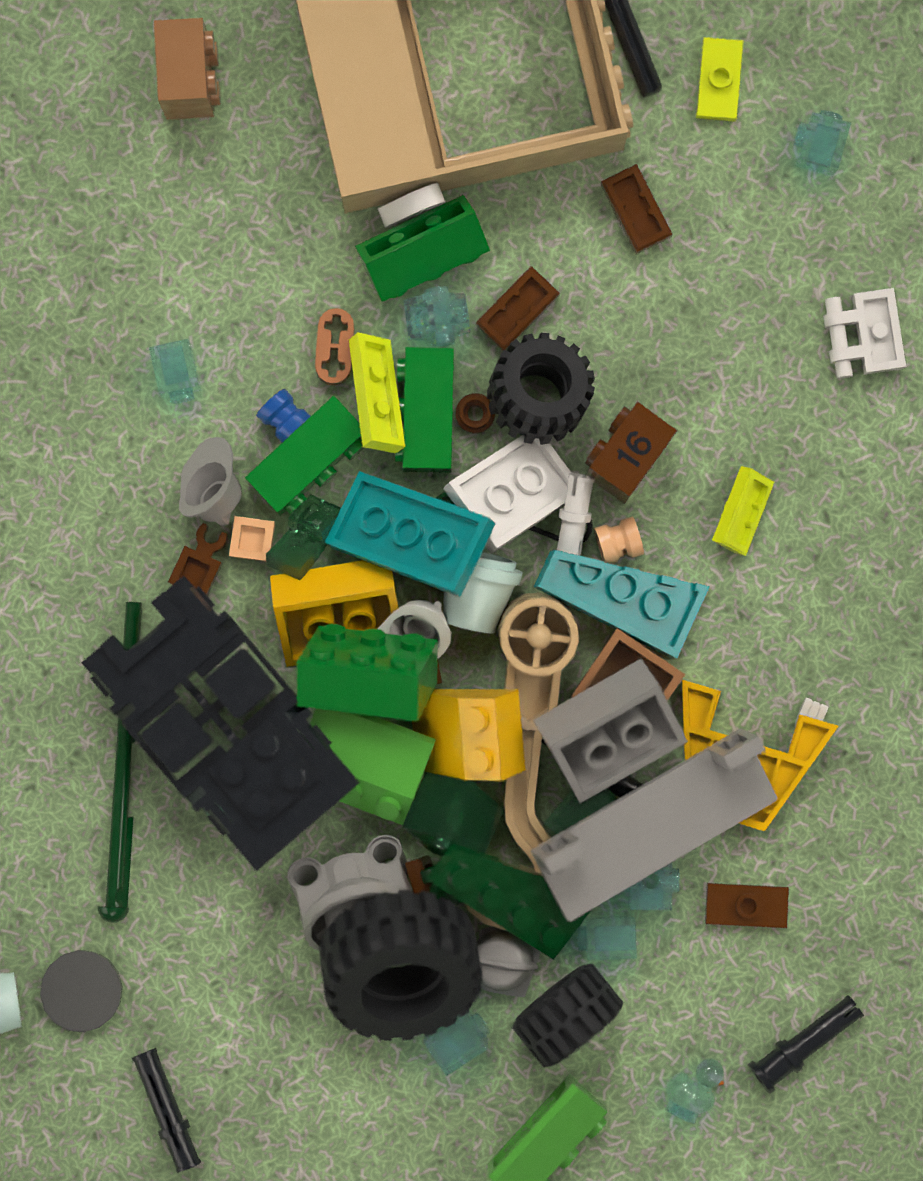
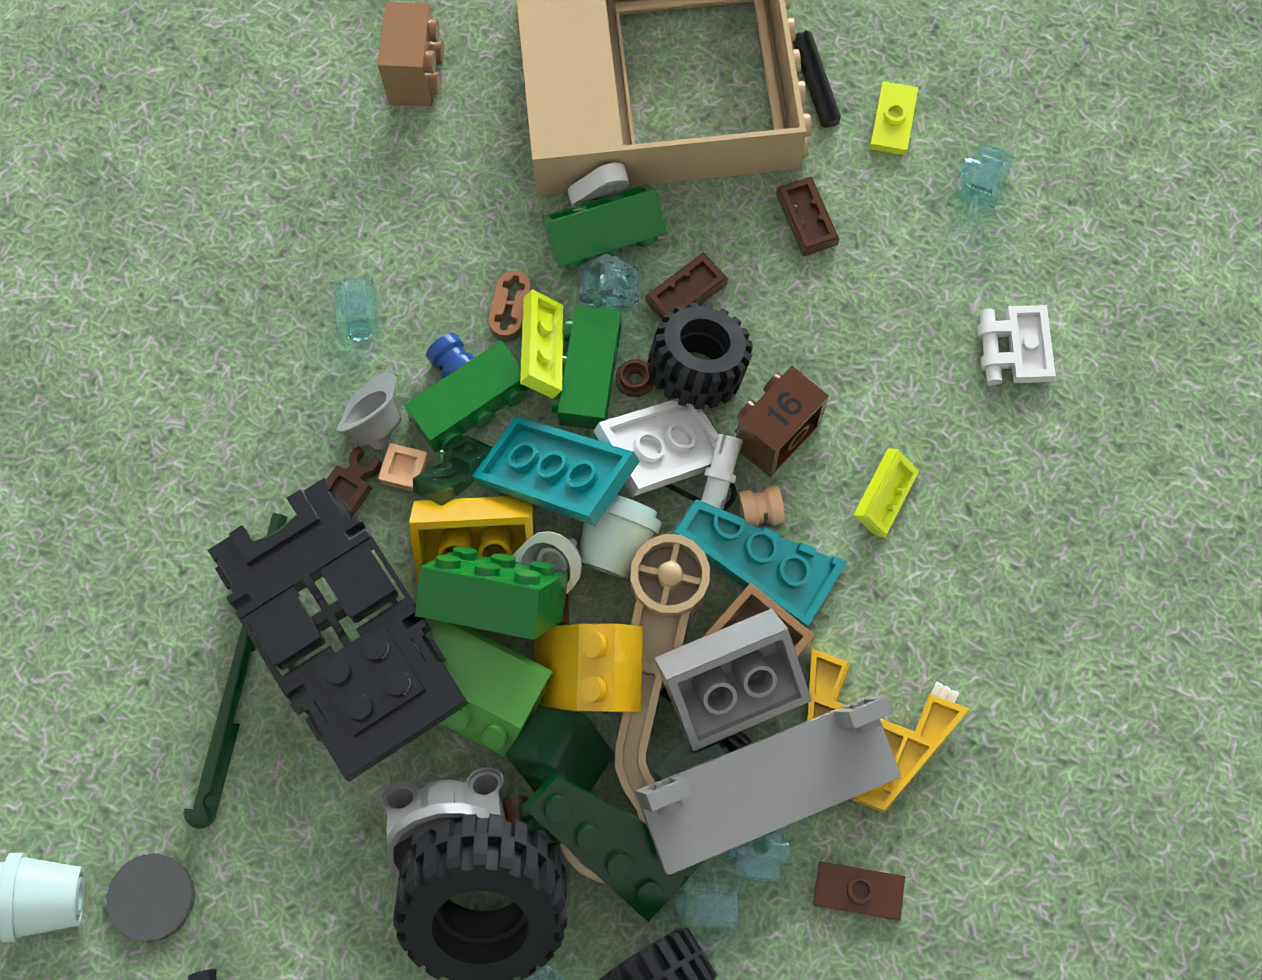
camera: 10 degrees right, 15 degrees down
(506, 962) = (597, 921): light grey piece -> none

